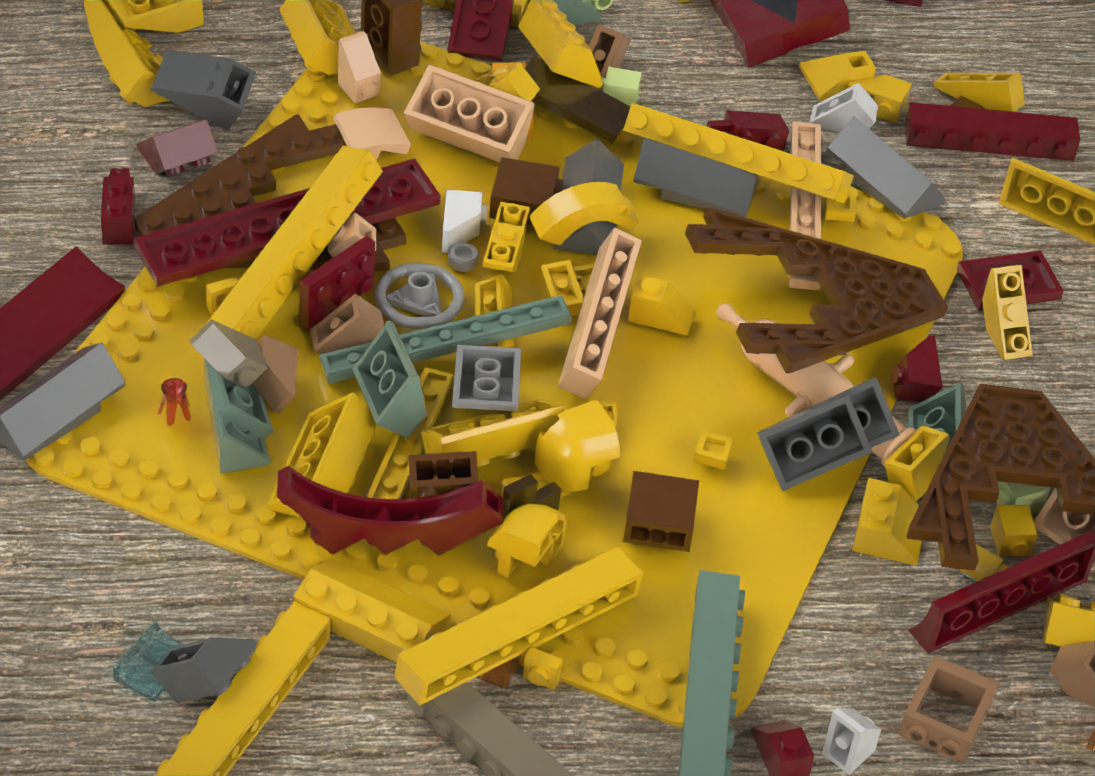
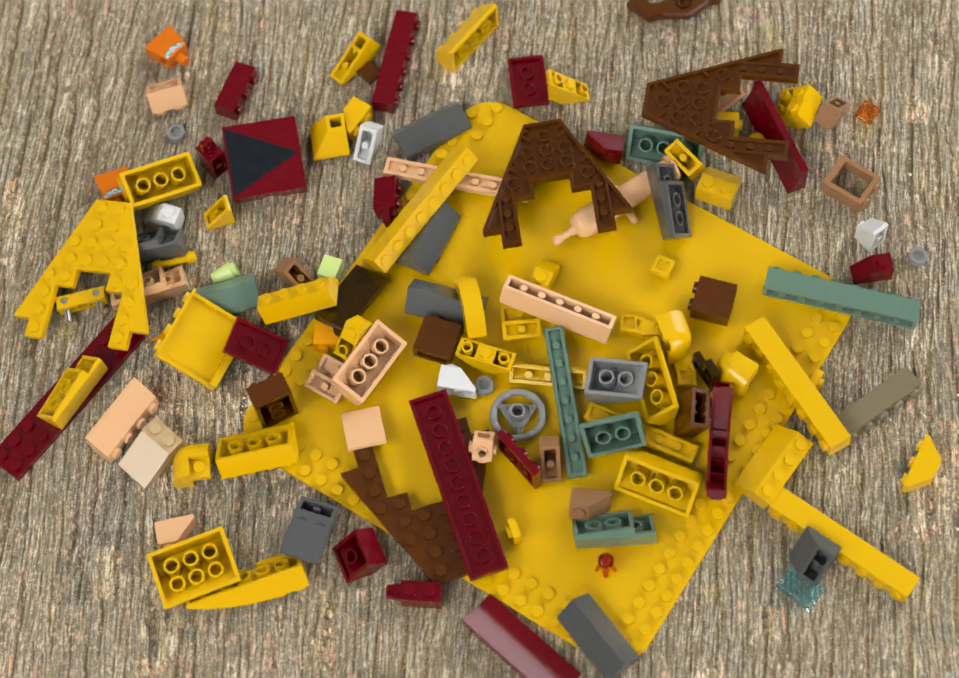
camera: 70 degrees left, 20 degrees up
(230, 353) = (591, 520): dark tan slope -> none
(298, 242) = (496, 478): yellow brick -> none
(358, 68) = (309, 429): light nougat slope -> none

